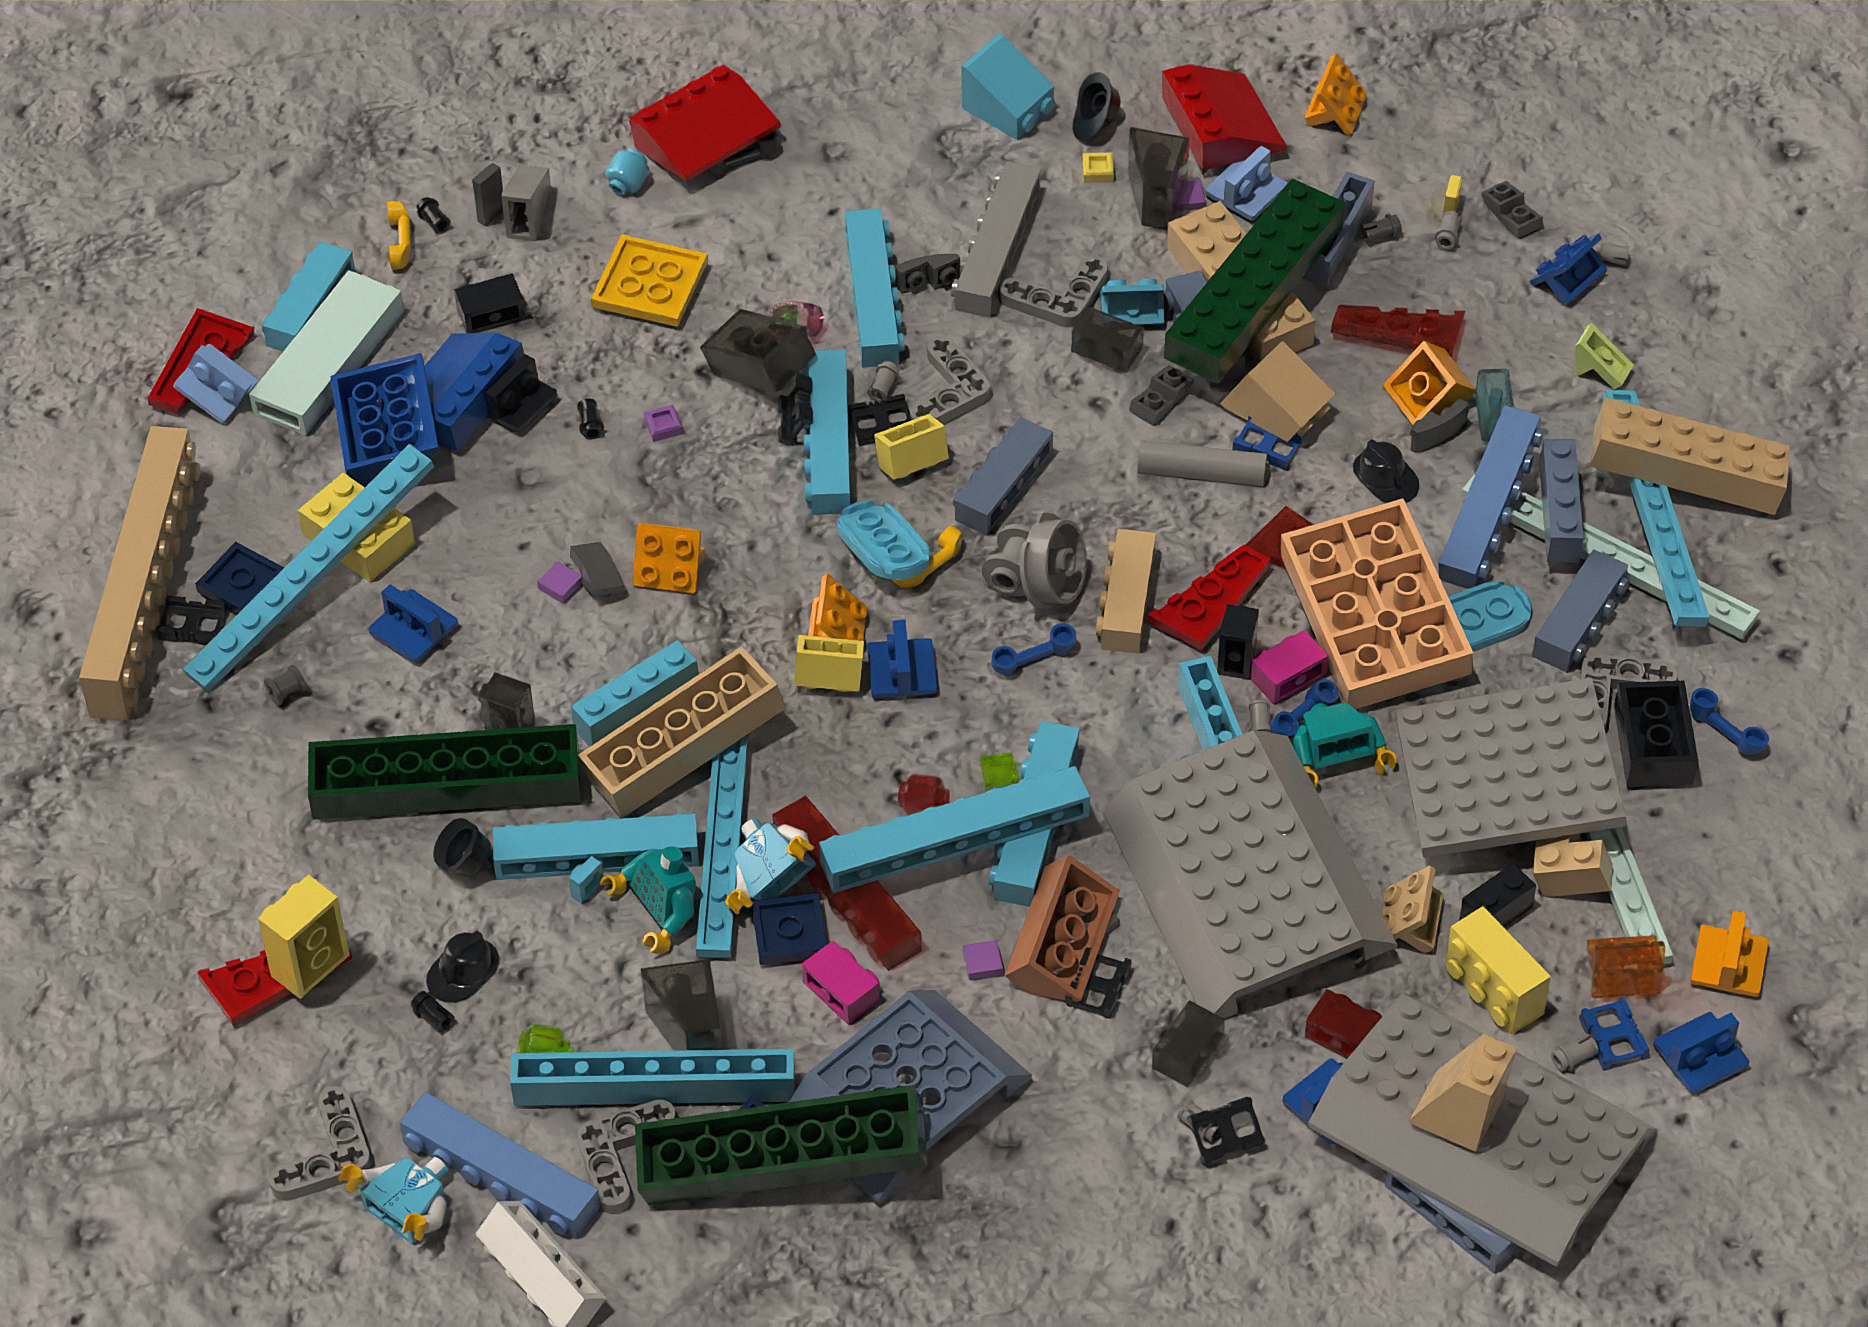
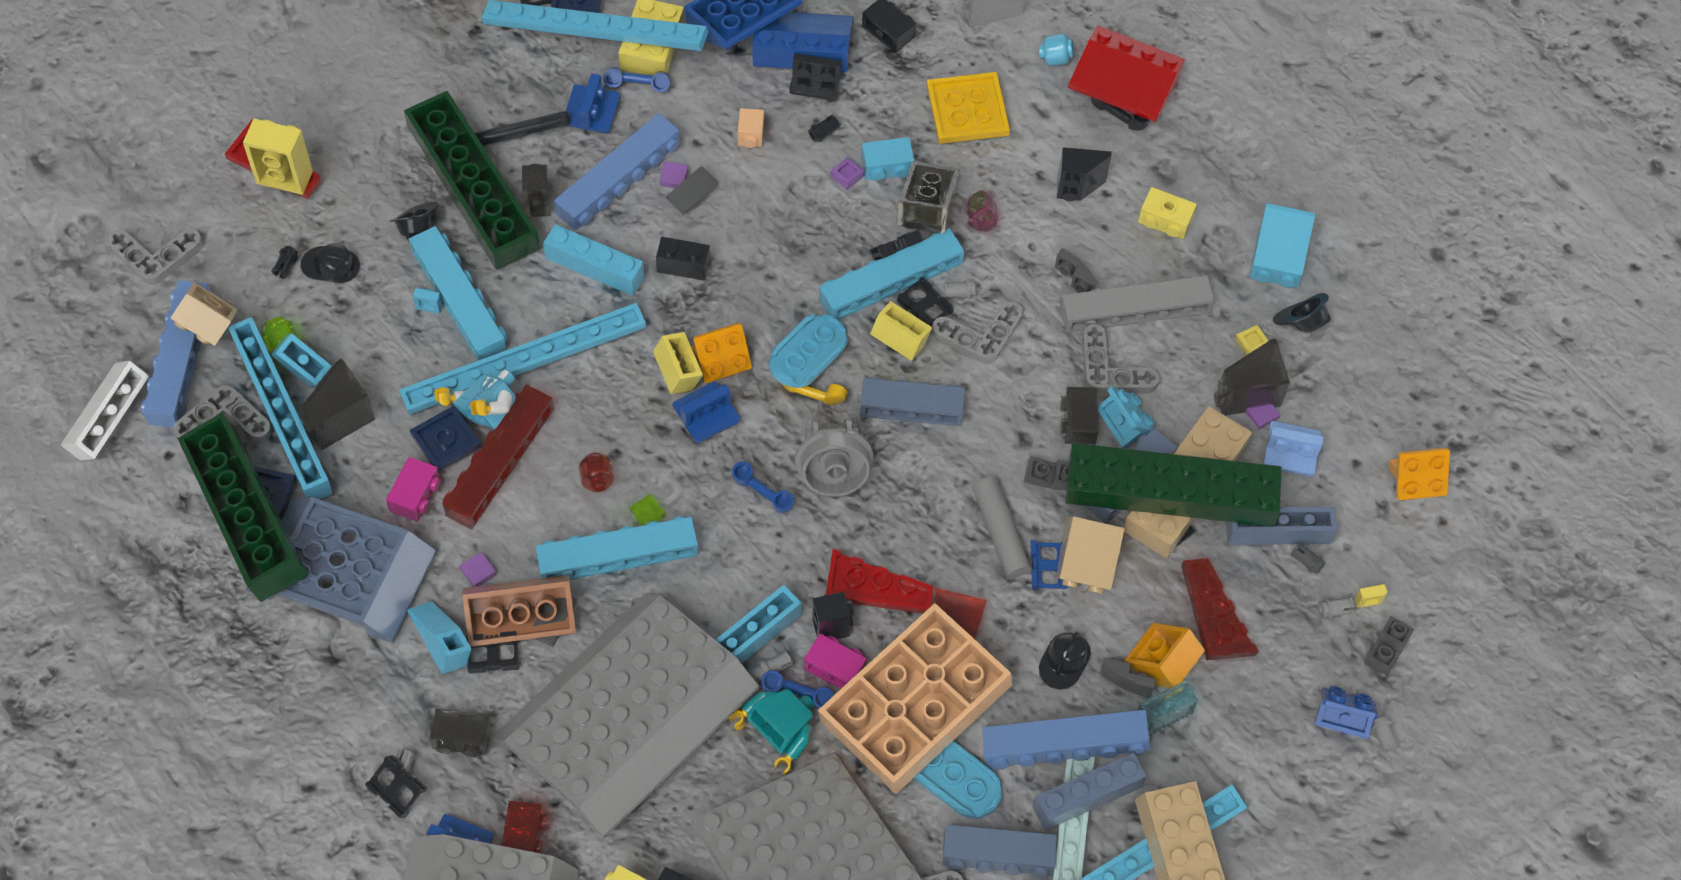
camera: 60 degrees right, 10 degrees up
(285, 685) = (503, 60): dark grey bush -> none
(402, 691) = (523, 128): none -> black axle
(402, 1195) = (129, 311): medium azure torso -> none
(417, 545) = (615, 76): none -> blue bar
(478, 1102) = (203, 314): none -> tan slope
(524, 629) = (617, 172): none -> medium blue brick
(547, 482) = (750, 127): none -> light nougat brick
(602, 1026) = (300, 360): none -> medium azure brick
(663, 888) = (433, 349): teal torso -> none
(667, 557) = (721, 226): light orange bracket -> none
(673, 375) = (886, 158): none -> medium azure brick
(682, 731) = (565, 299): tan brick -> none
(687, 609) = (683, 258): none -> black brick
(807, 213) = (1081, 172): none -> black slope
(872, 287) = (1040, 244): medium azure brick -> none
(900, 167) = (1167, 213): none -> light yellow brick
(954, 829) = (559, 500): medium azure brick -> none
(1057, 1017) = (441, 637): none -> medium azure slope
(1127, 590) = (849, 526): tan brick -> none
(1218, 114) = (1351, 400): red slope -> none
(1414, 909) = (647, 839): tan bracket -> none
(1599, 353) = (1264, 769): yellowish green slope -> none

